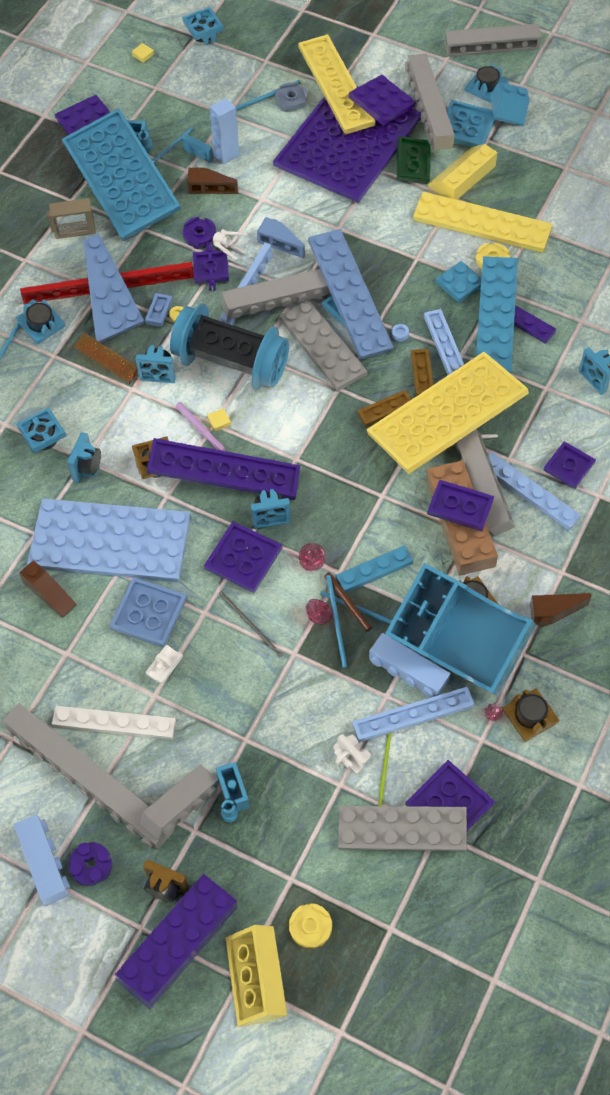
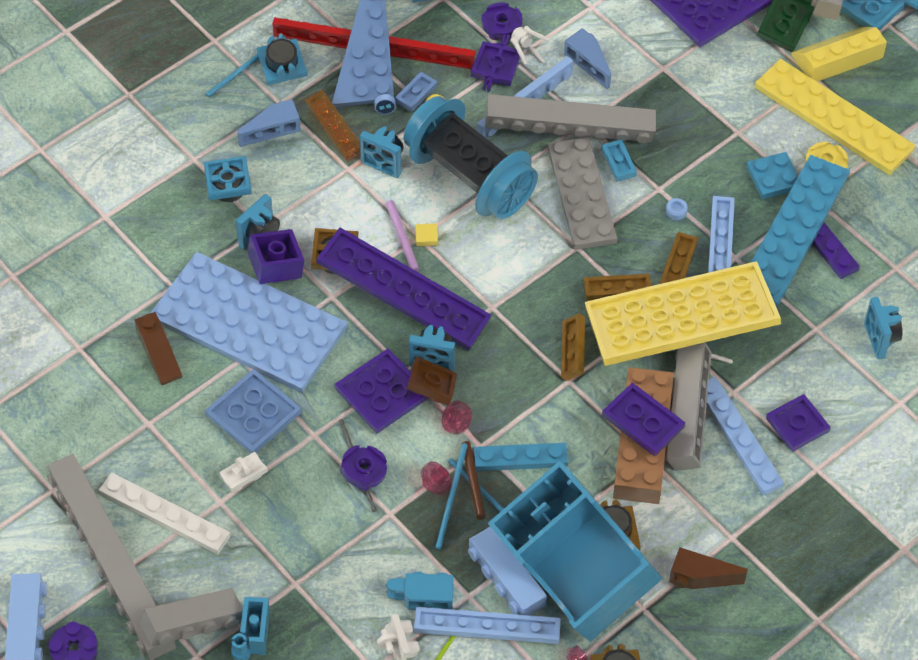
camera: 20 degrees right, 5 degrees down
(57, 372) = (273, 122): none -> medium blue slope
(110, 479) = (275, 256): none -> dark purple brick
(139, 328) = (385, 104): none -> tile
(258, 633) = (359, 477): none -> dark purple plate
(280, 535) = (432, 381): none -> reddish brown plate
(350, 294) = (636, 146): medium blue plate -> none
(351, 706) = (423, 590): none -> dark azure hinge
(374, 468) = (573, 347): none -> pearl gold plate

